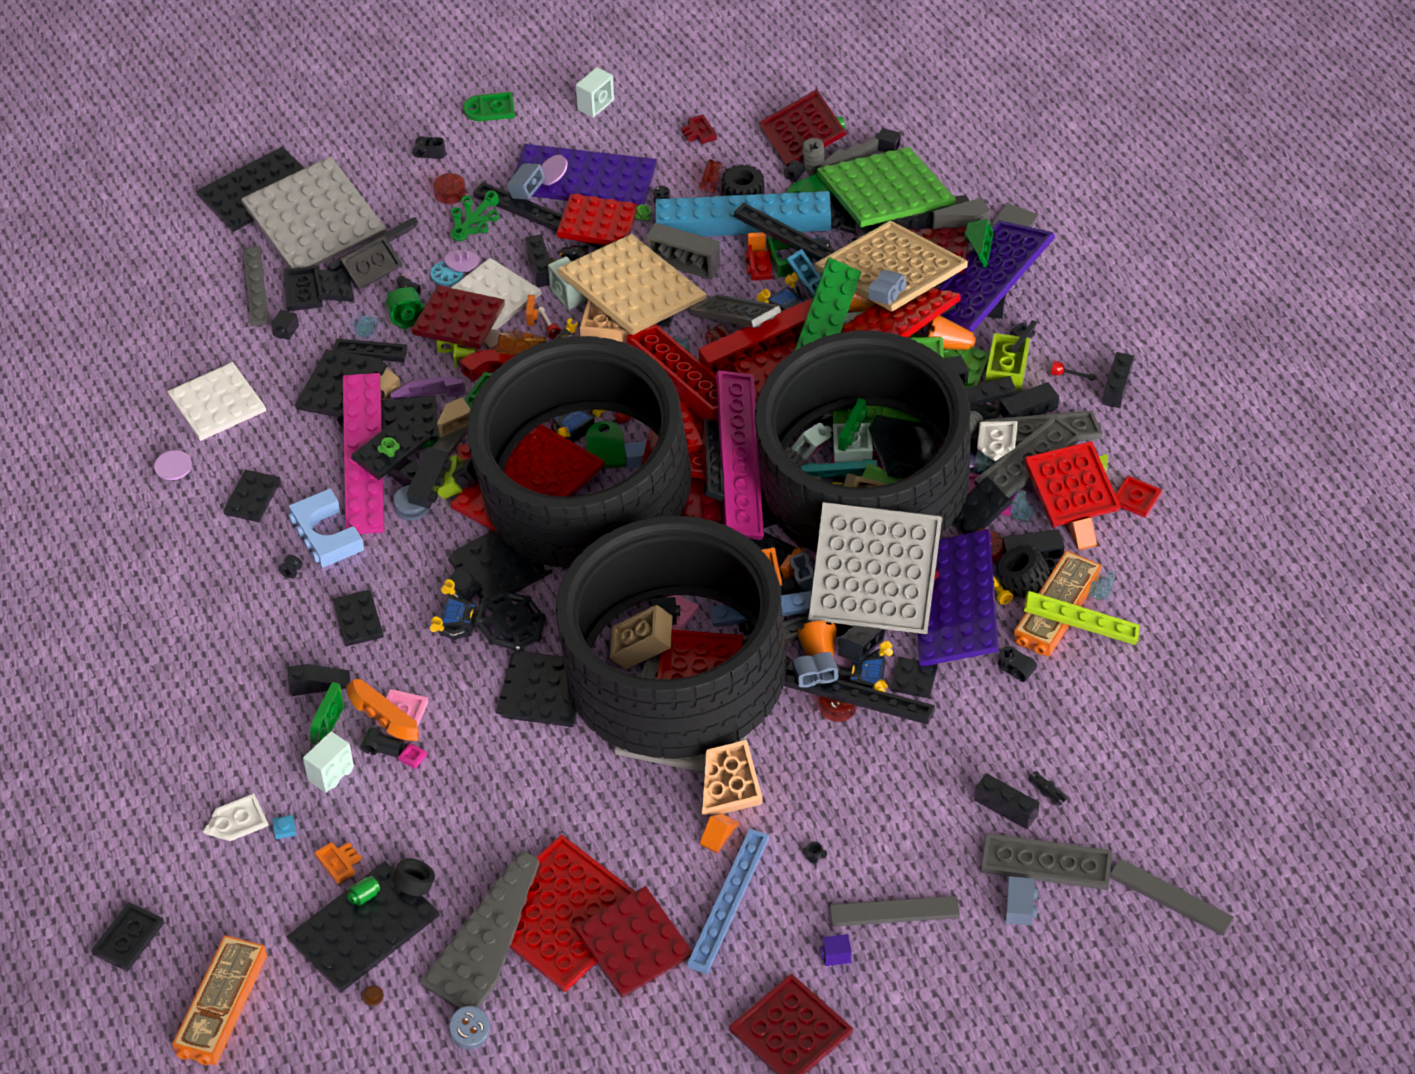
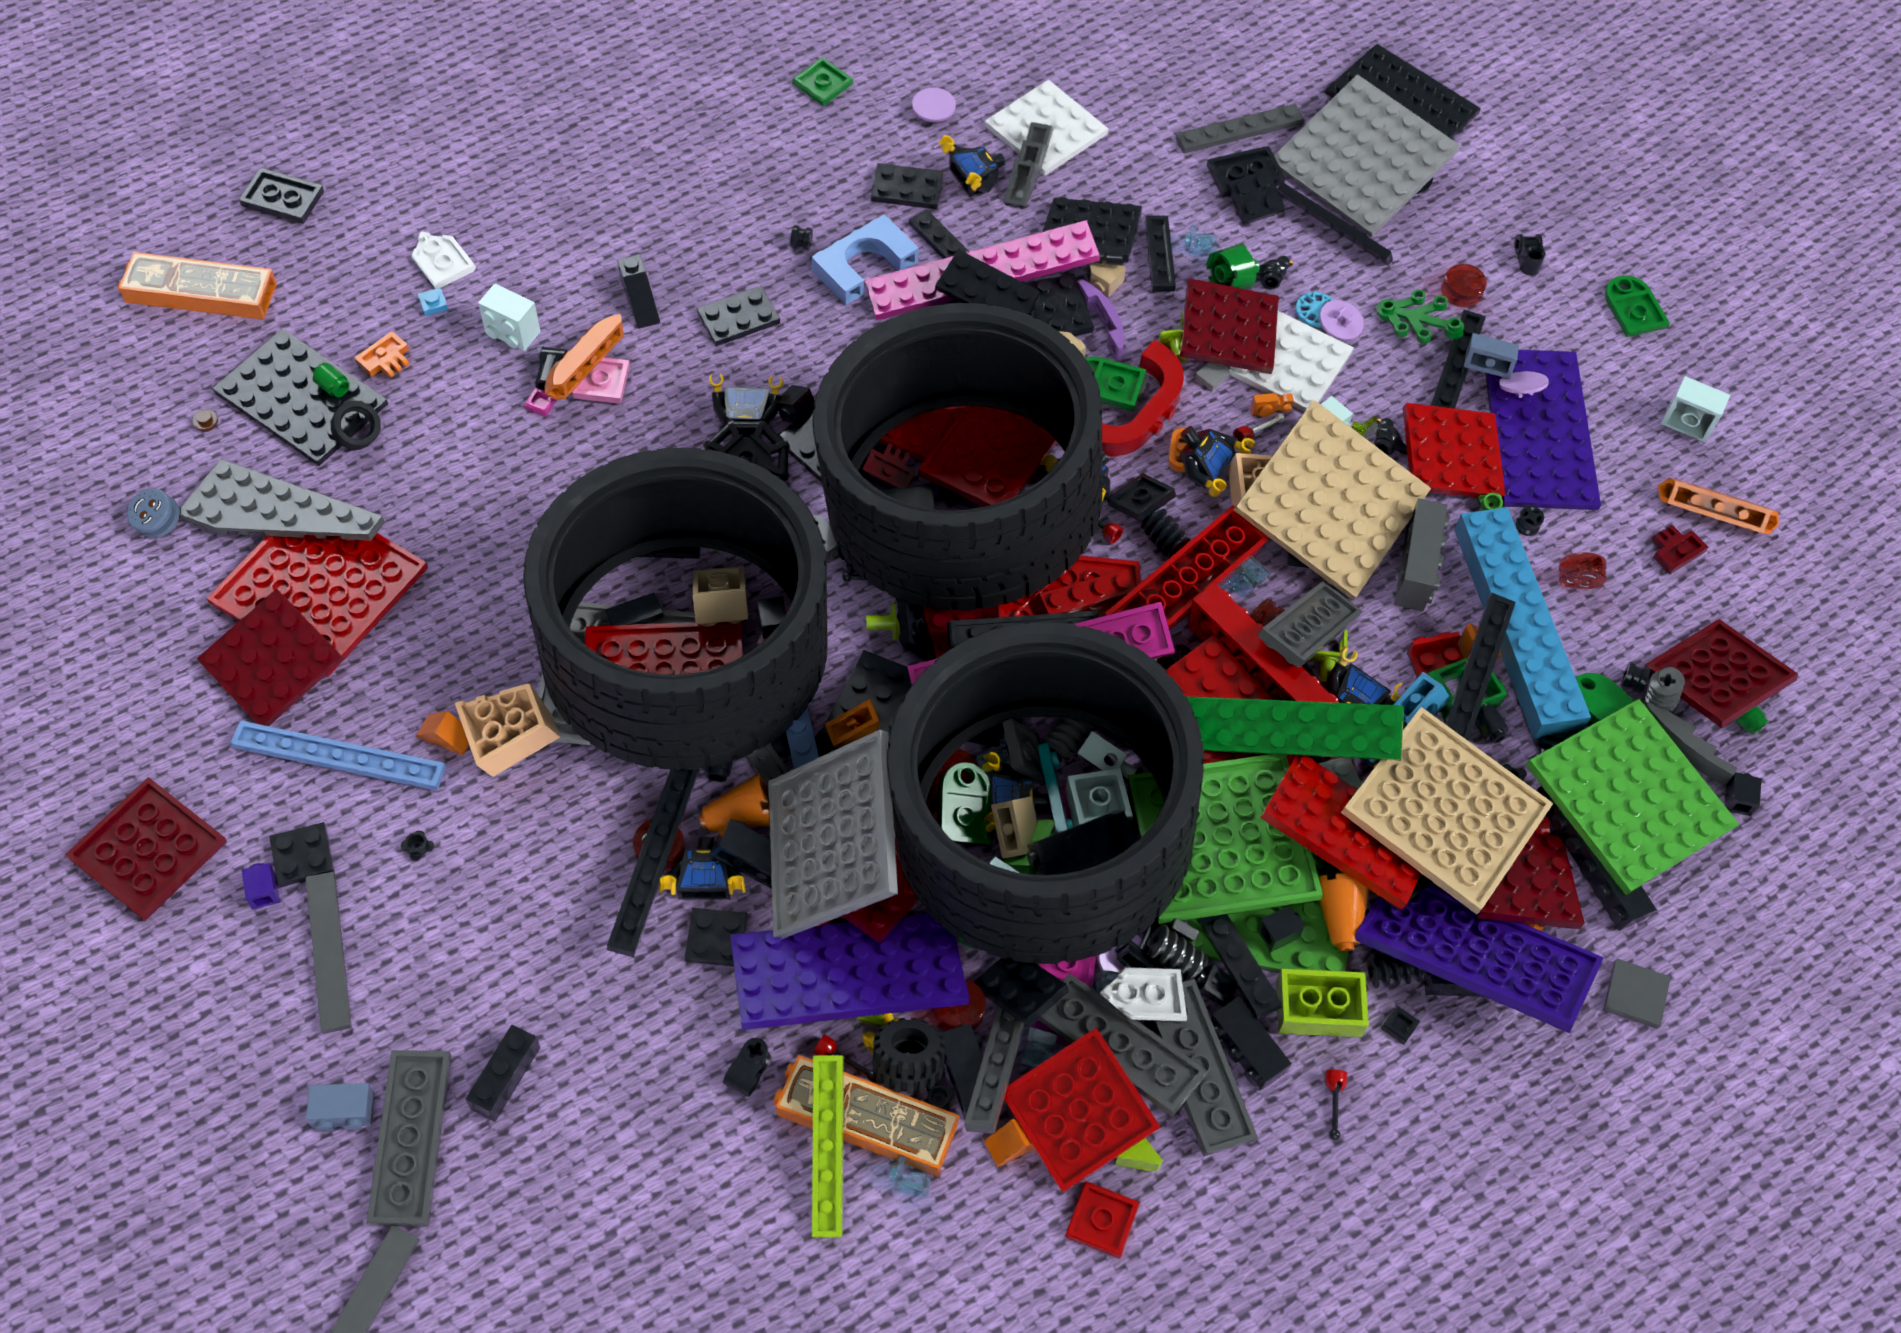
camera: 75 degrees right, 10 degrees up
(116, 539) = (822, 81): none -> green tile
(252, 447) = (972, 166): none -> torso
(258, 412) = (1028, 165): none -> dark grey slope
(285, 324) = (1177, 163): black brick -> none
(315, 481) = (936, 234): none -> black plate
(327, 714) = (574, 303): green tile -> none
(370, 262) = (1301, 225): black plate -> none
(391, 443) = (974, 274): bright green plate -> none
(516, 341) = (1199, 395): clear orange slope -> none
(538, 259) = (1367, 395): black brick -> none
(671, 102) = (1718, 505): none -> orange brick
(742, 181) = (1587, 599): black tyre -> none
(809, 926) = (301, 854): none -> black plate
(815, 669) = (682, 798): sand blue brick -> none
(852, 425) = (1112, 788): green plate -> none
(887, 286) = (1376, 794): sand blue brick -> none
(960, 214) = (1604, 914): dark grey slope -> none
(980, 238) = (1542, 930): green slope -> none
(987, 327) = (1385, 967): none -> black piece
(1006, 621) = (828, 1047): none -> hinge
(1023, 337) = (1364, 1014): black piece -> none
(1041, 523) = (994, 1073): none -> dark grey plate
(1047, 788) = (535, 1128): black pin -> none
(1118, 380) = (1329, 1172): black brick -> none

